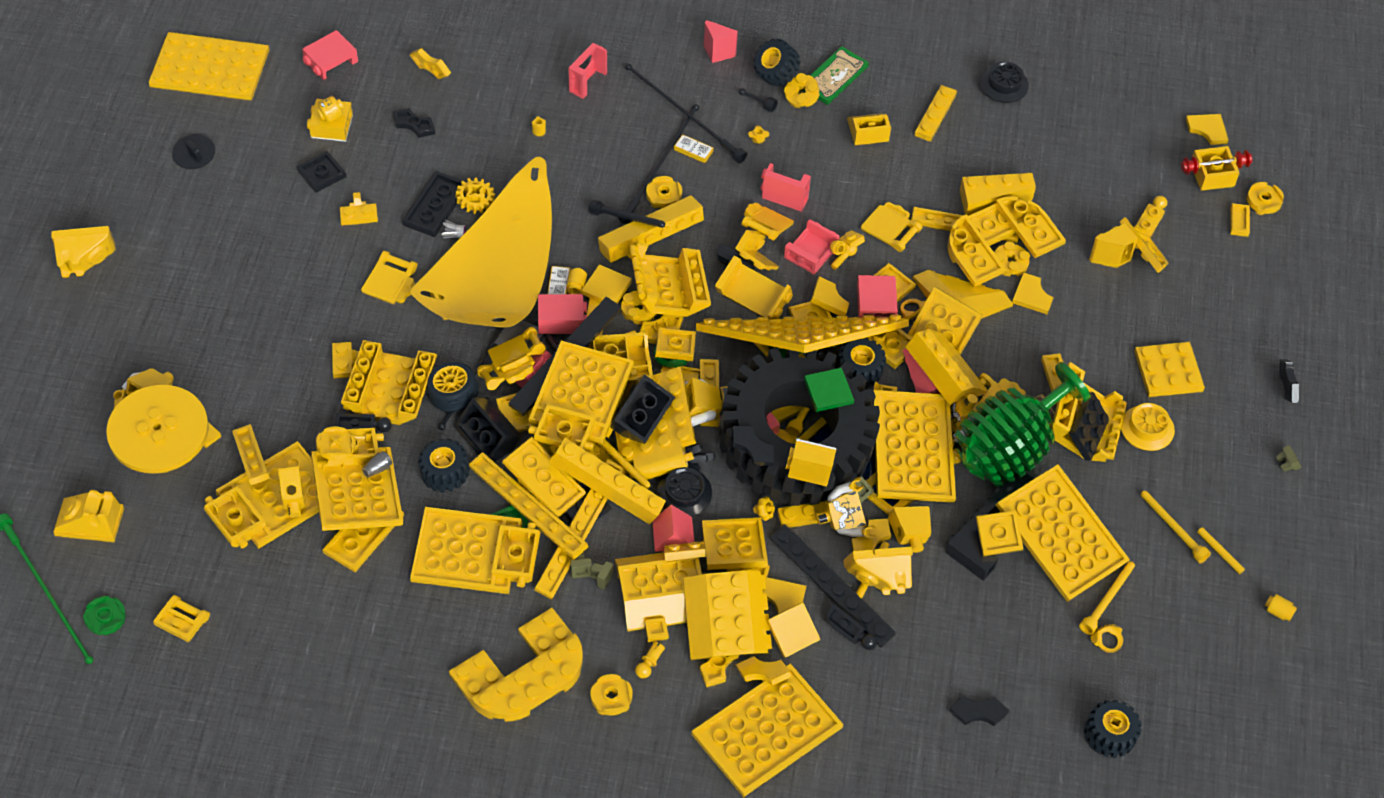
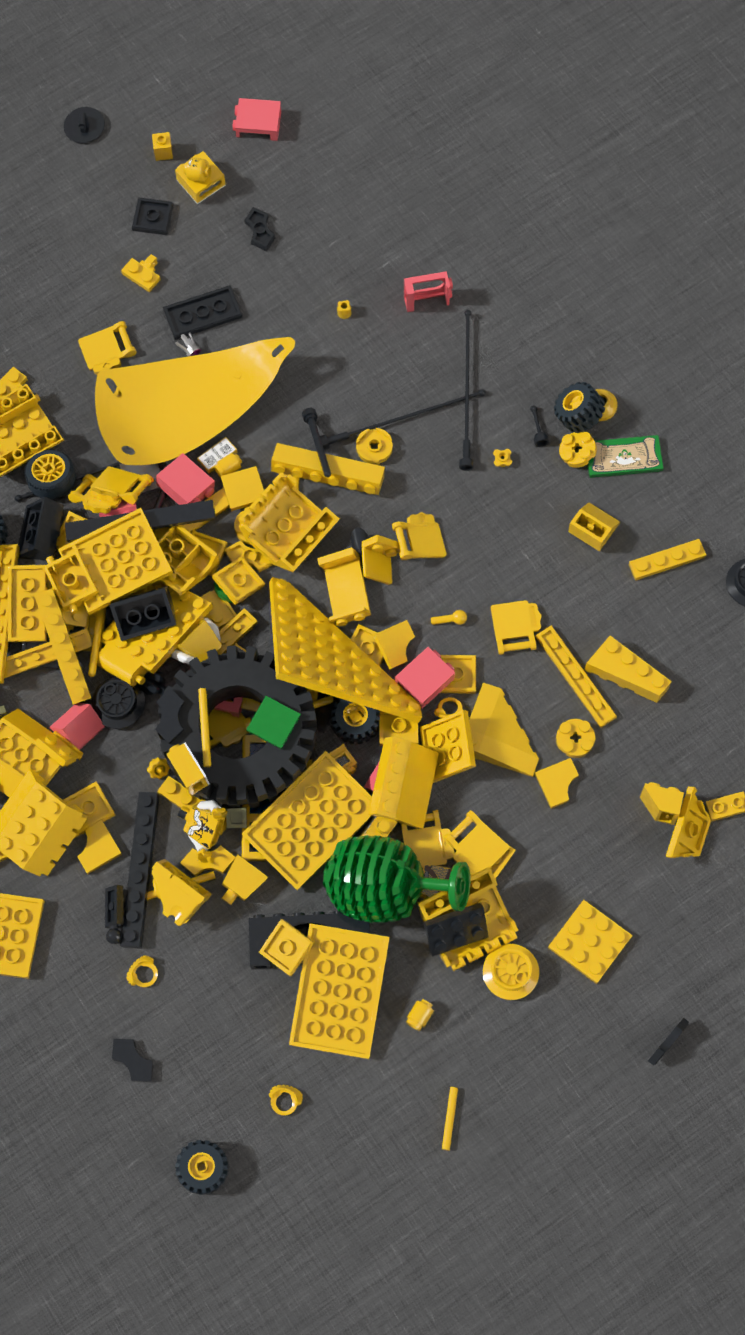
camera: 50 degrees right, 15 degrees up
(209, 66) = (168, 58): yellow plate -> none
(277, 120) = (162, 146): none -> yellow brick
(433, 65) = (319, 187): yellow tile -> none
(475, 195) = (225, 330): yellow gear -> none
(693, 148) = (439, 427): tile -> none
(719, 41) = (555, 351): coral slope -> none
(734, 543) = (105, 774): yellow plate -> none
(755, 669) = (16, 880): yellow tile -> none
(775, 425) = (204, 727): none -> yellow bar
(785, 189) = (467, 538): coral panel -> none
(793, 629) = (72, 876): yellow tile -> none
(811, 247) = (432, 590): coral panel -> none
(850, 238) = (465, 610): yellow plate -> none
(910, 657) = (144, 961): none -> yellow piece
(974, 234) = (588, 696): yellow plate -> none
(1036, 371) = (479, 848): none -> yellow piece
(1089, 624) = (284, 1076): yellow piece -> none
(1126, 504) = (419, 1014): none -> yellow brick
(1200, 553) = (430, 1105): yellow piece -> none
(1280, 607) = (436, 1205): yellow brick -> none
(1291, 459) = (592, 1103): olive tile -> none

